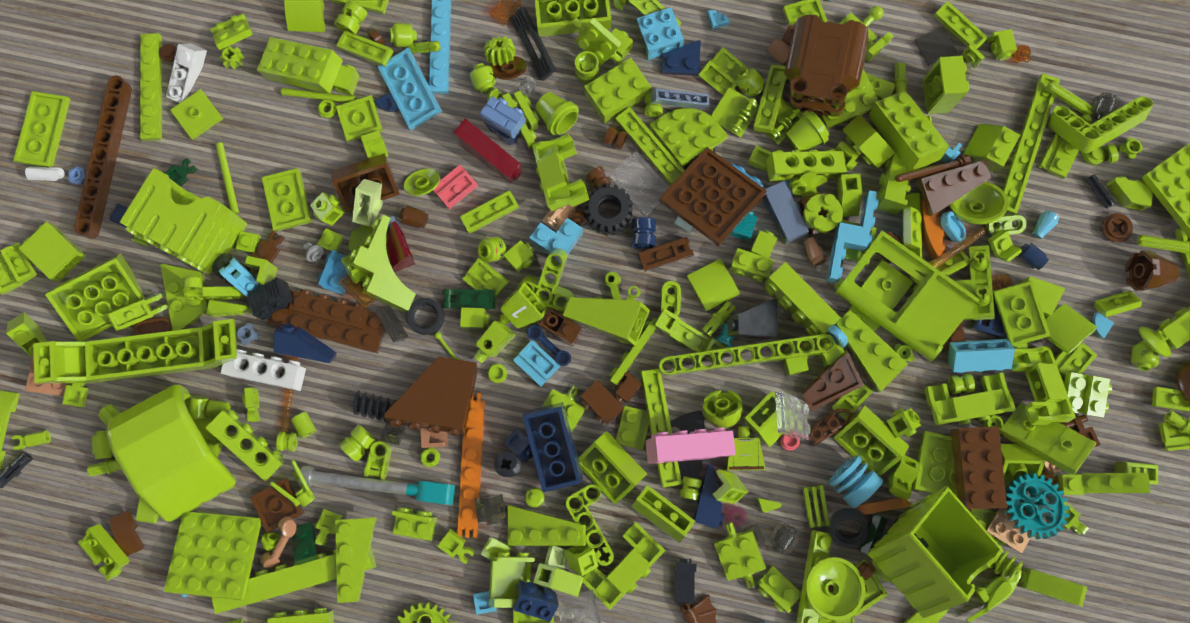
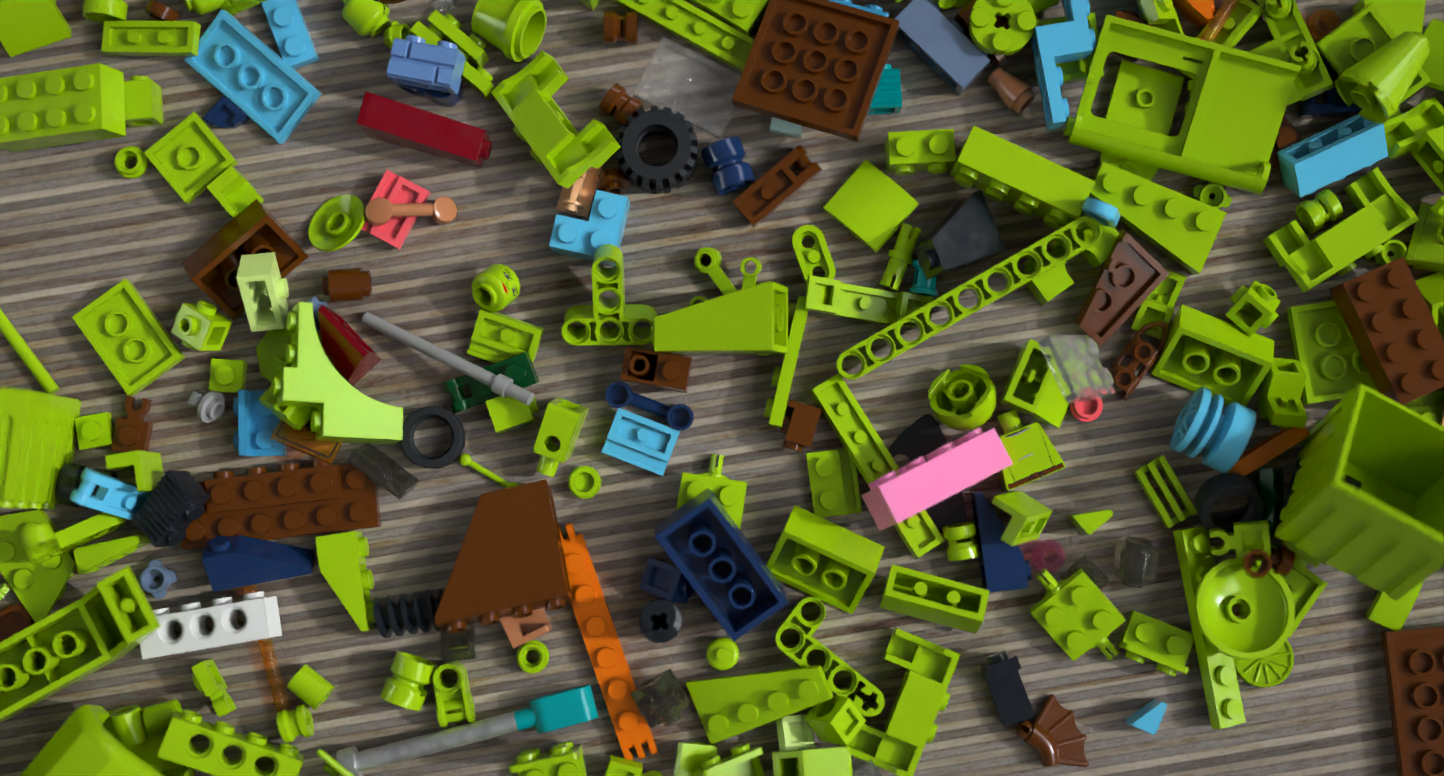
camera: 20 degrees left, 5 degrees up
(317, 95) = (105, 146): lime bar -> none
(348, 368) = (344, 567): none -> lime slope
(447, 184) = (380, 210): none -> nougat bar
(472, 300) = (499, 383): none -> light grey bar
(489, 212) = (466, 228): lime plate -> none
(520, 256) = (545, 281): lime brick -> none
(522, 307) = (583, 362): lime torso -> none
(602, 403) = (769, 464): reddish brown brick -> none
(764, 243) = (926, 108): lime brick -> none
(848, 562) = (1264, 567): none -> reddish brown hinge
(852, 550) = (1245, 538): none -> lime plate
(1024, 323) = (1384, 76): none -> lime cone

